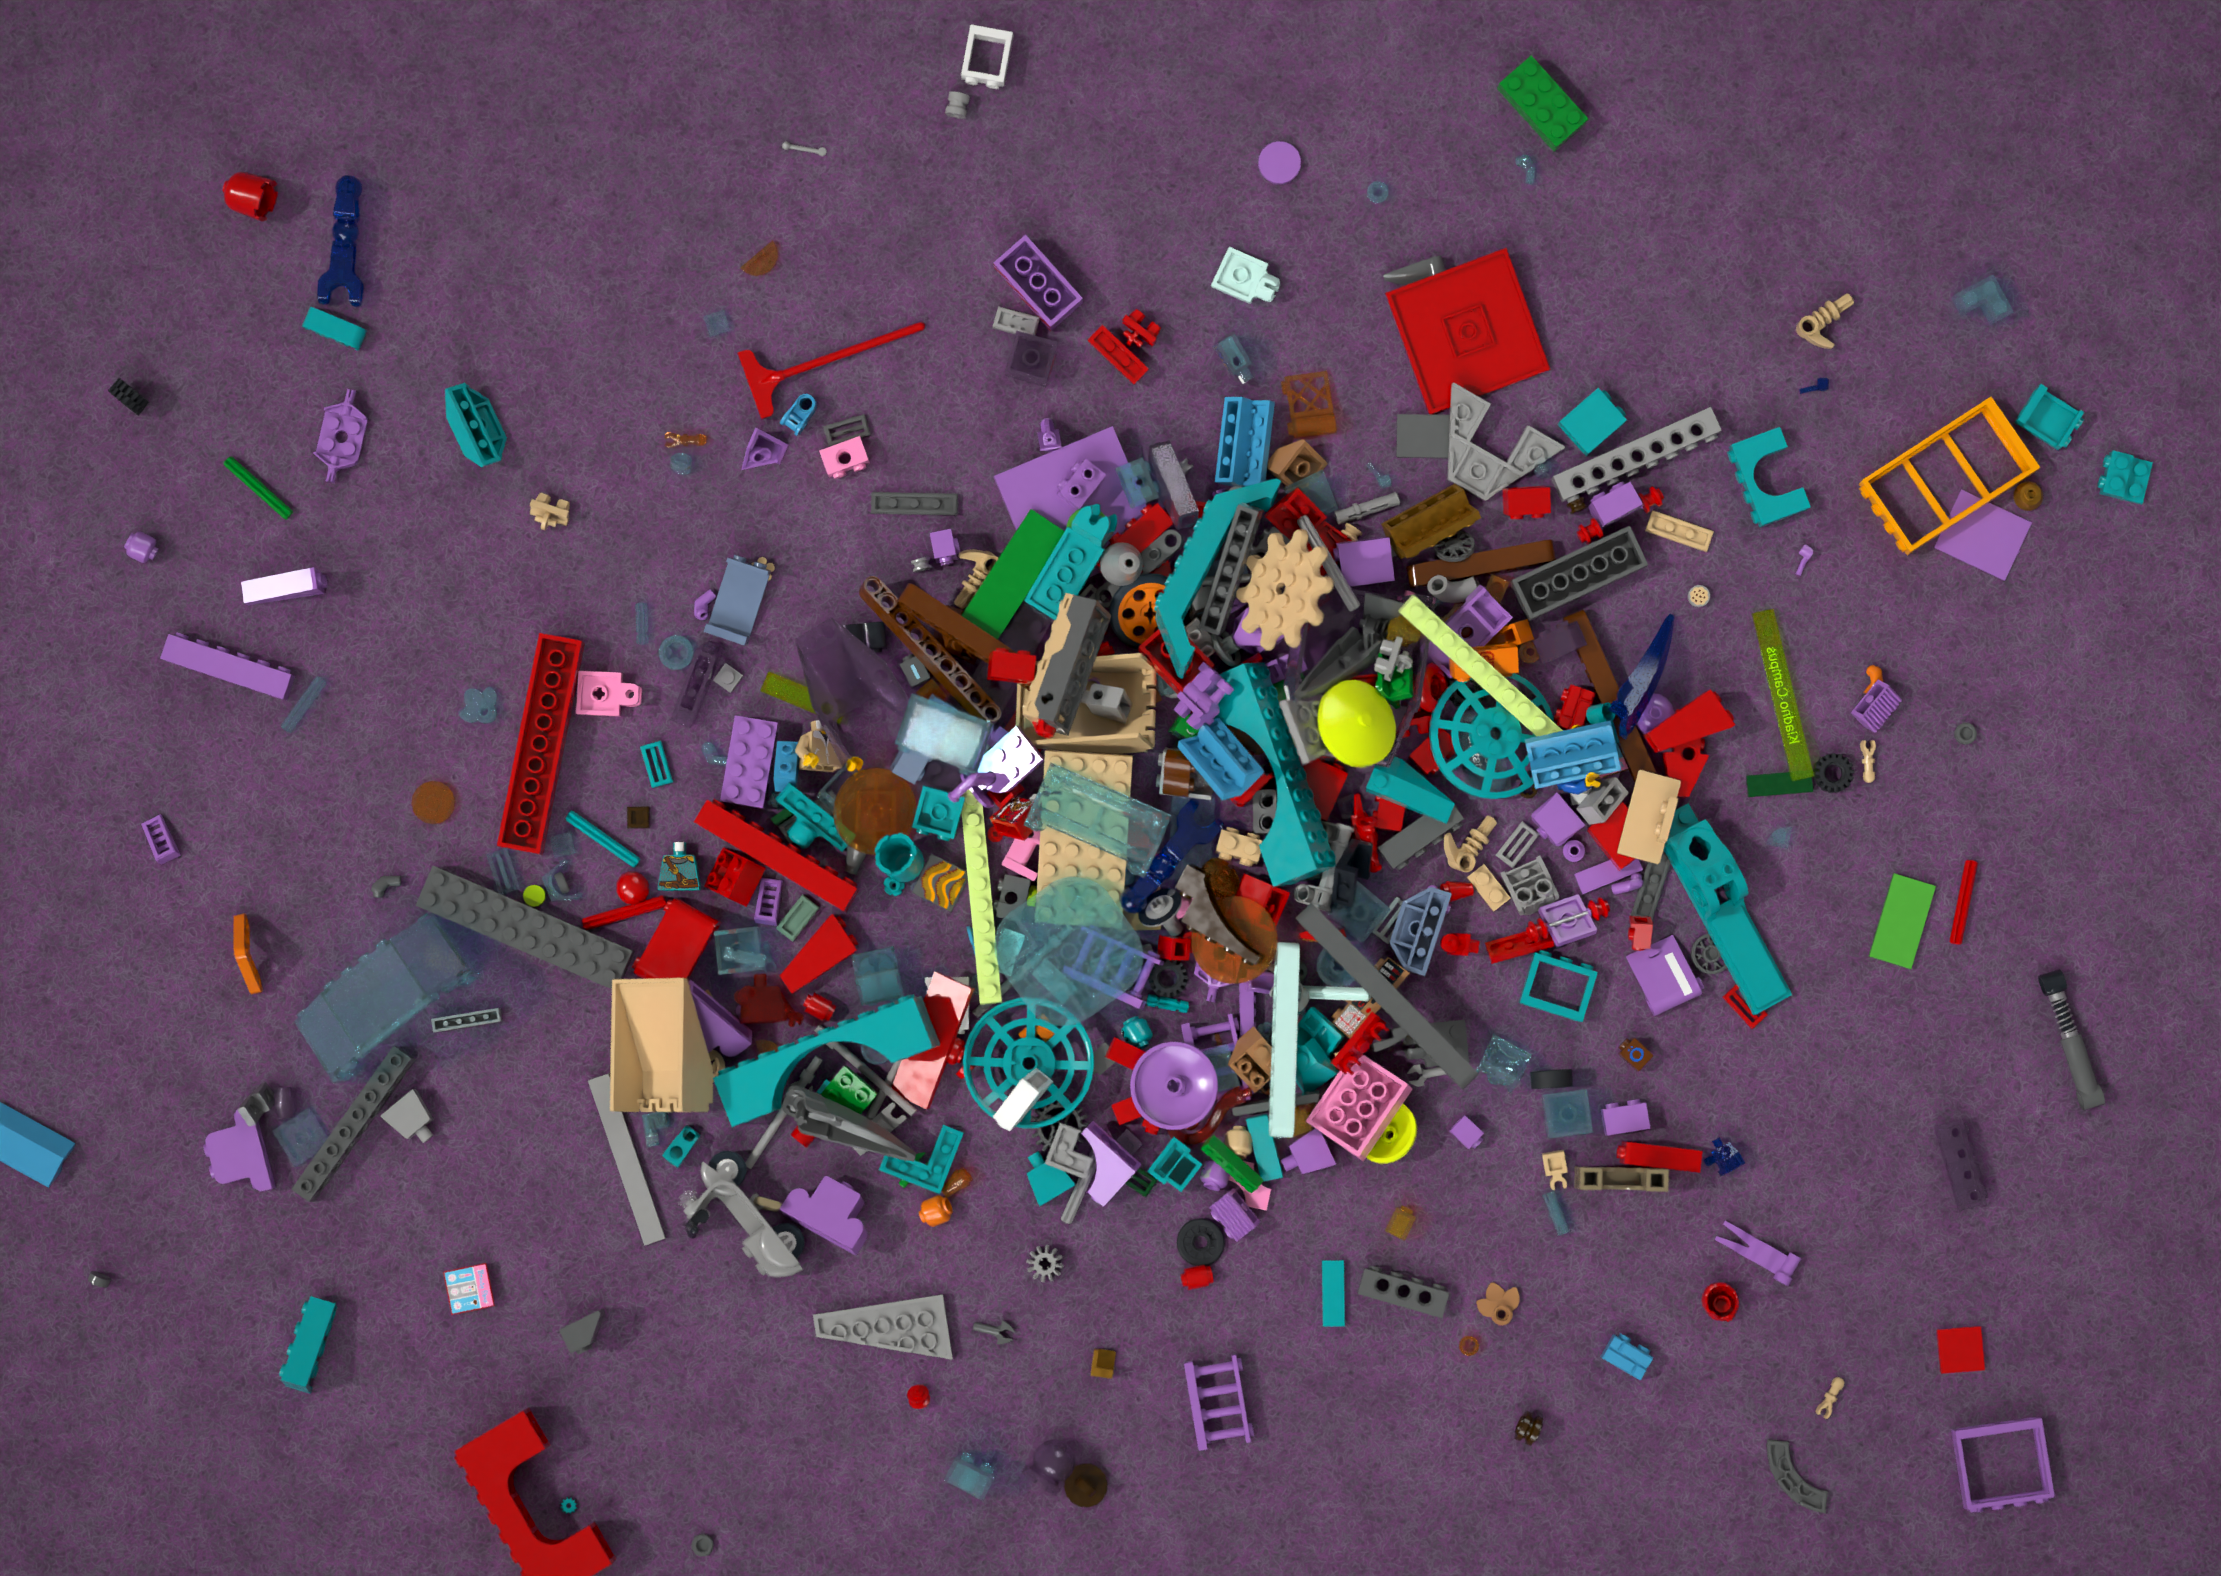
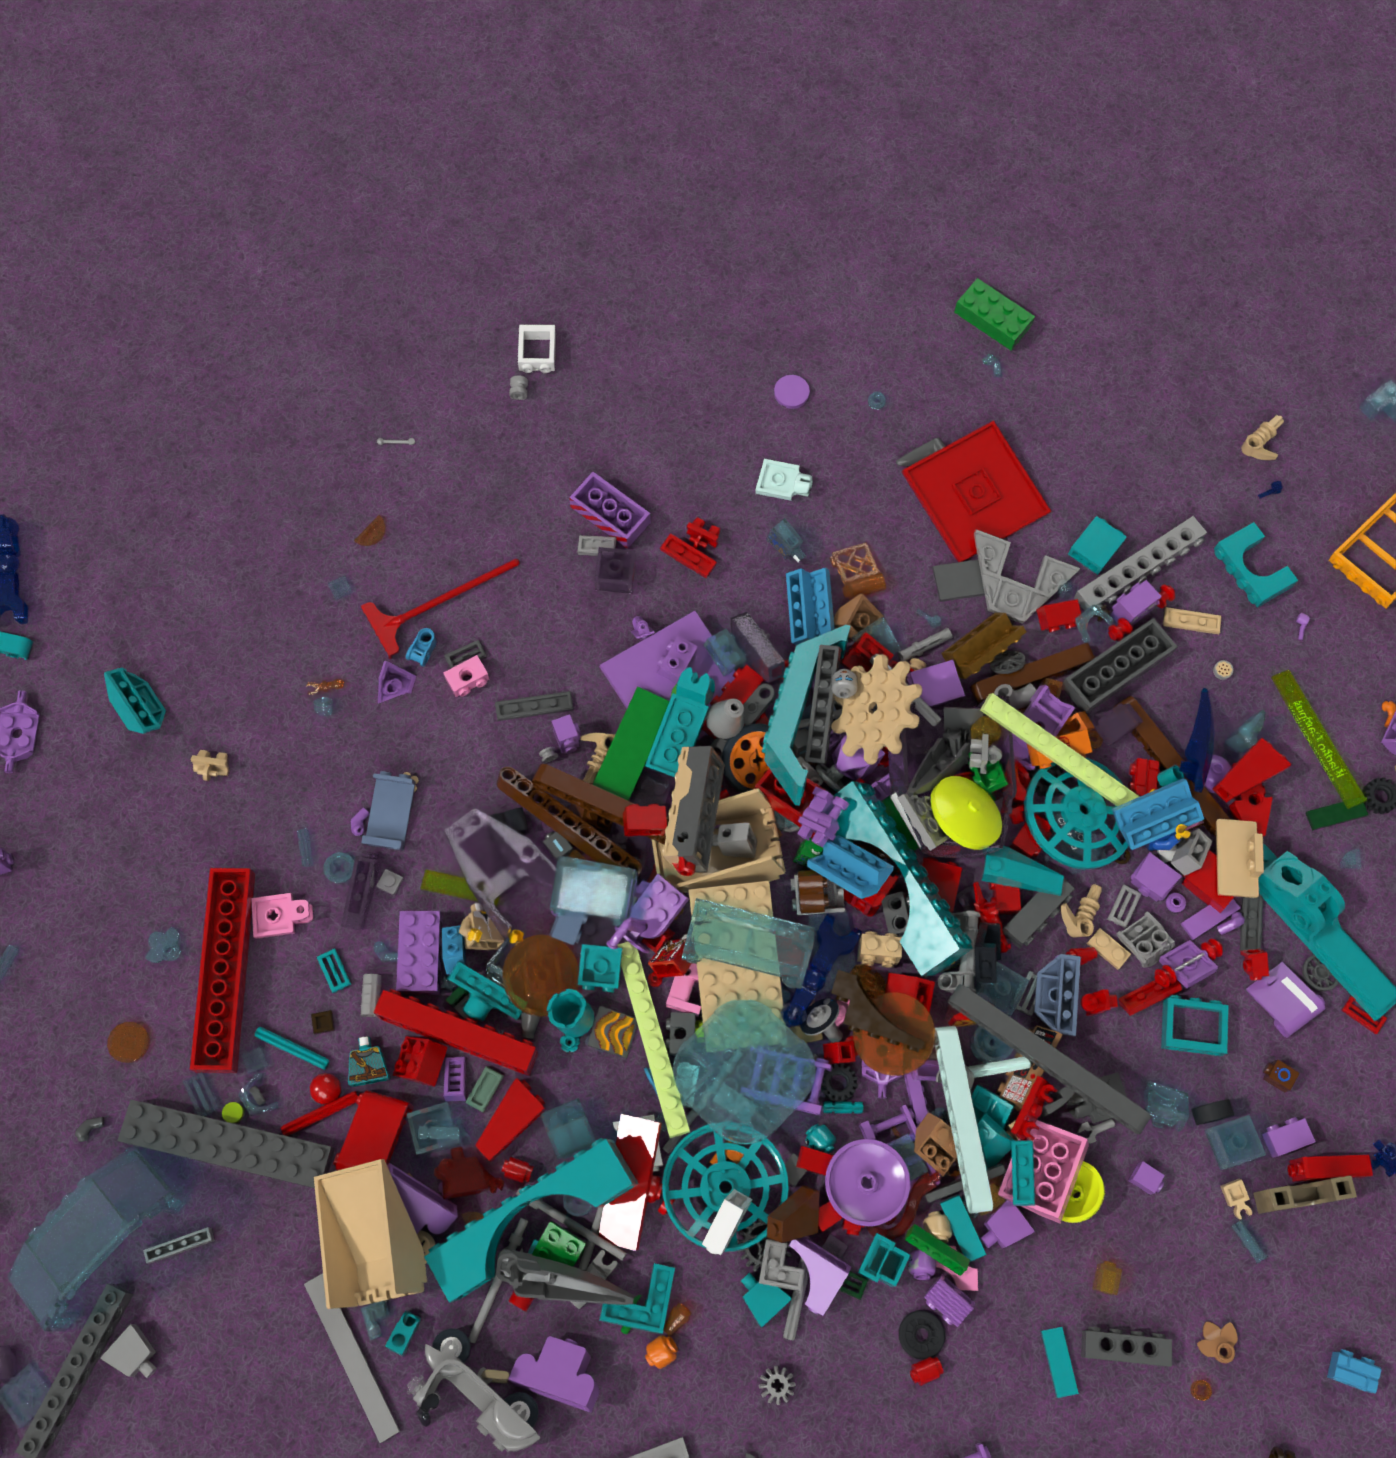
camera: 15 degrees left, 15 degrees down
(692, 798) = (370, 994): none -> light grey axle
(1093, 1106) = (795, 1216): none -> reddish brown slope
(1256, 553) = (844, 683): none -> light grey head
(1335, 1105) = (1023, 1173): none -> teal tile
(1554, 509) = (1083, 619): none -> clear light blue helmet
(1697, 680) = (1246, 733): none -> clear light blue slope

